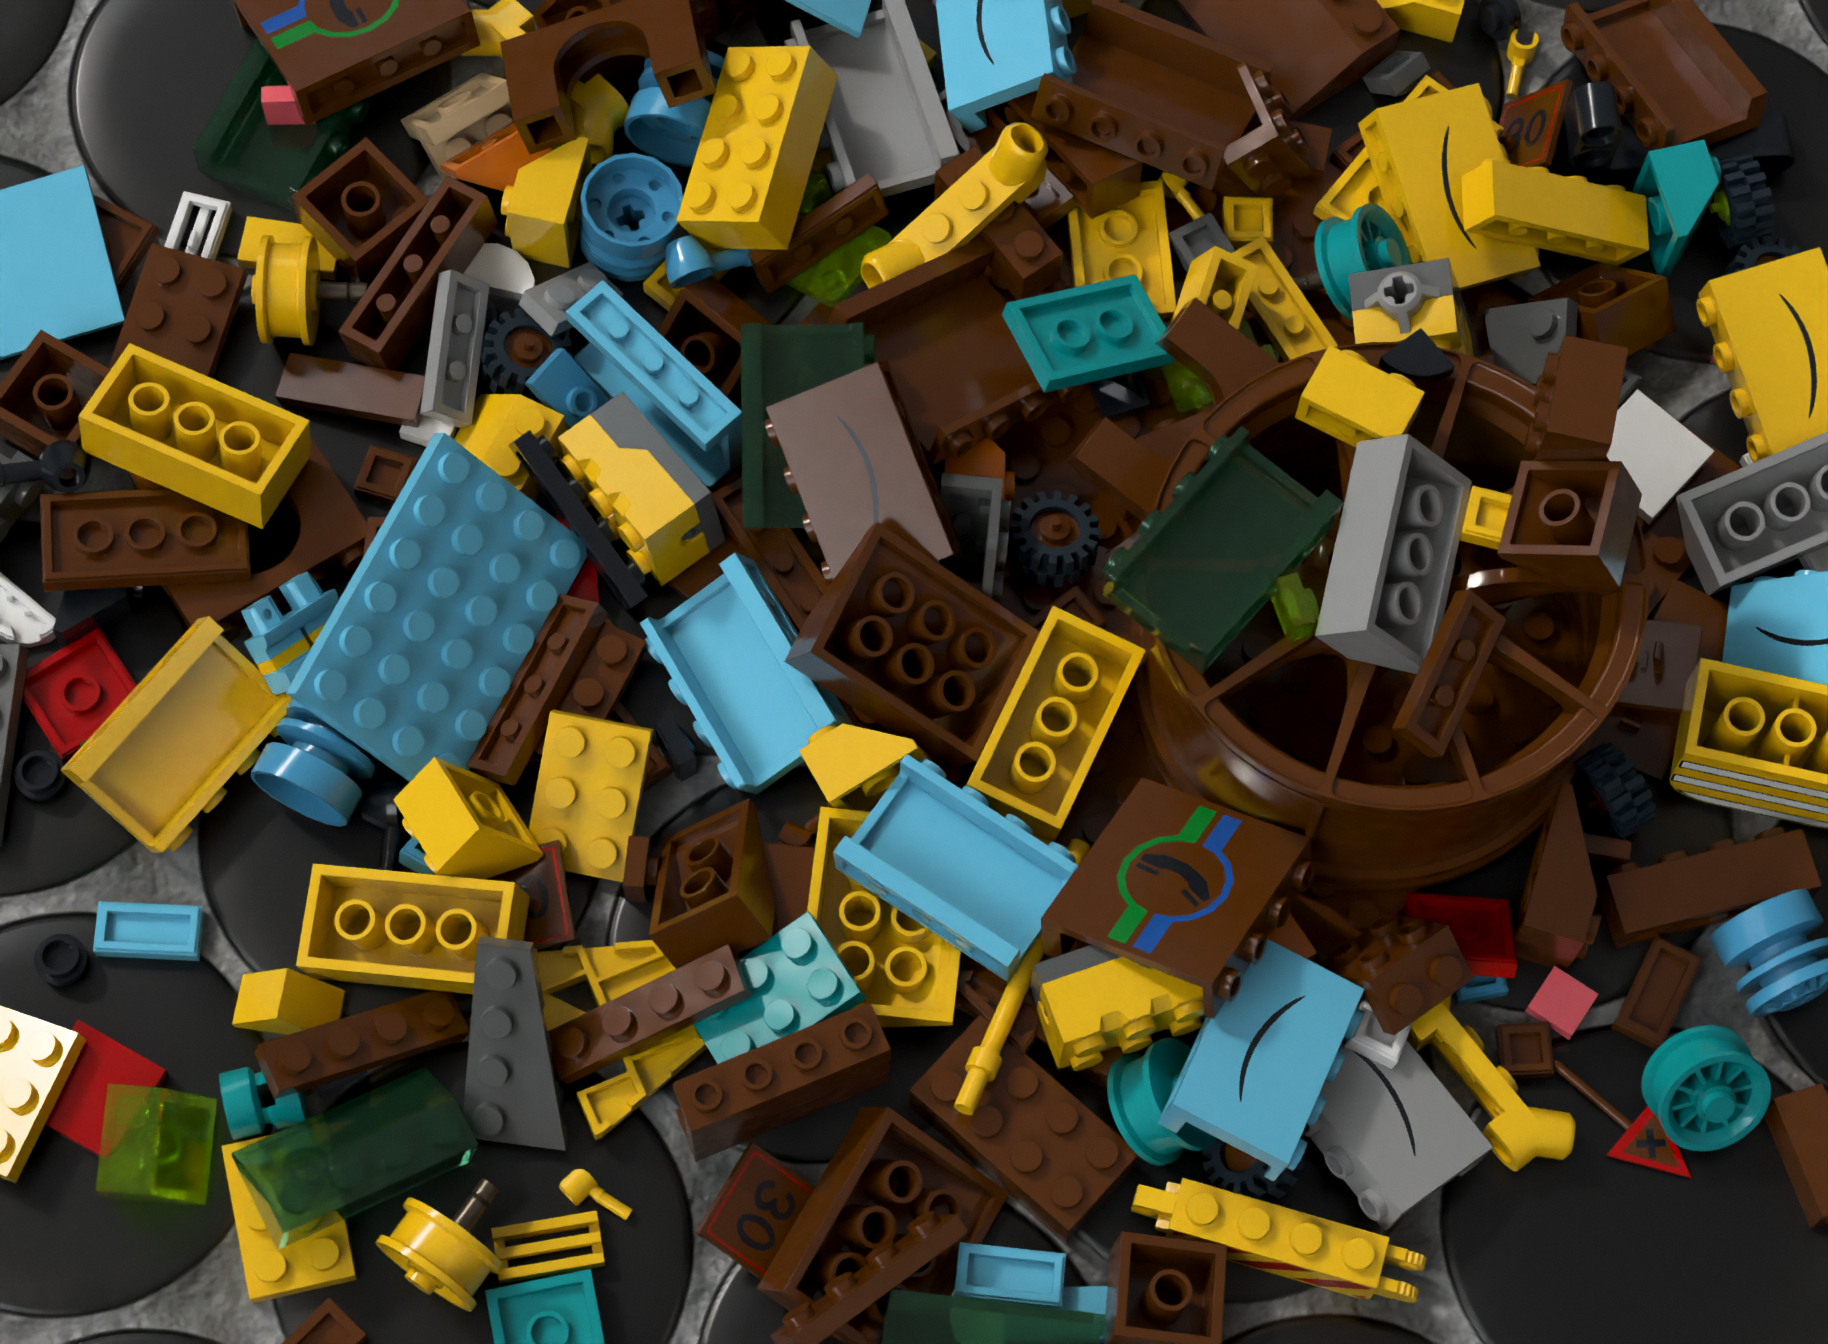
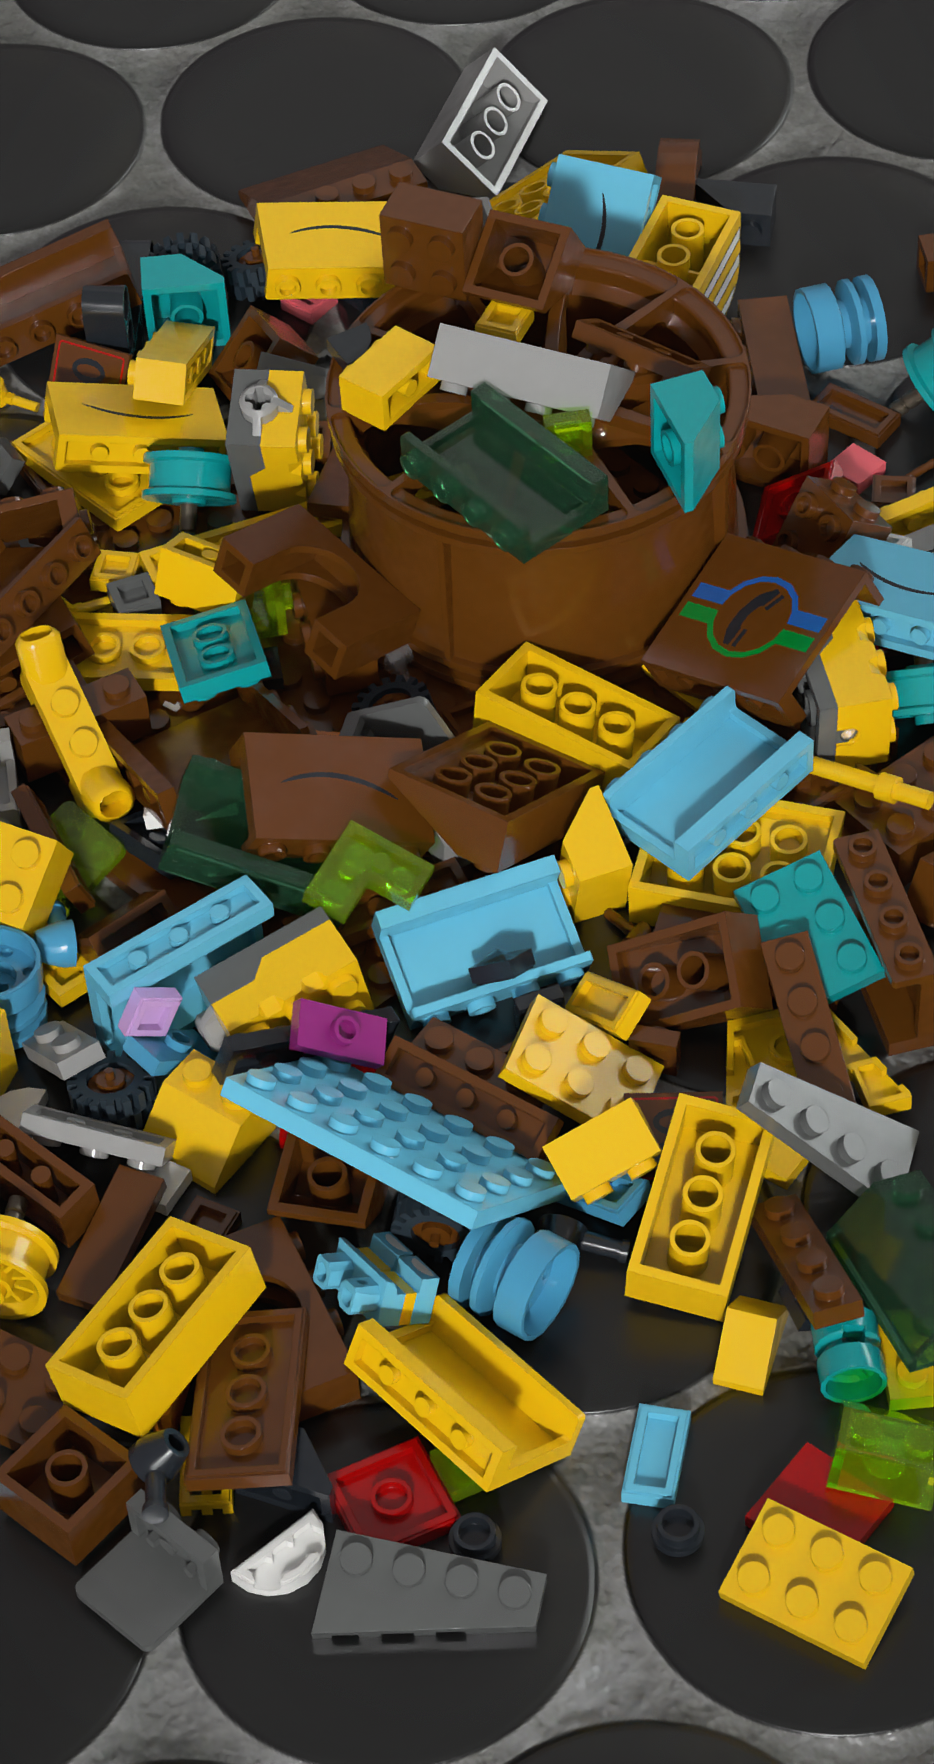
camera: 75 degrees left, 20 degrees down
(576, 544) = (338, 1033): none -> magenta plate
(583, 360) = (150, 1011): none -> lavender tile
(677, 810) = (608, 1005): none -> yellow tile
(711, 697) = (501, 966): none -> black tile
(774, 526) = (363, 862): none -> clear neon green plate
(1282, 735) = (687, 434): none -> teal slope

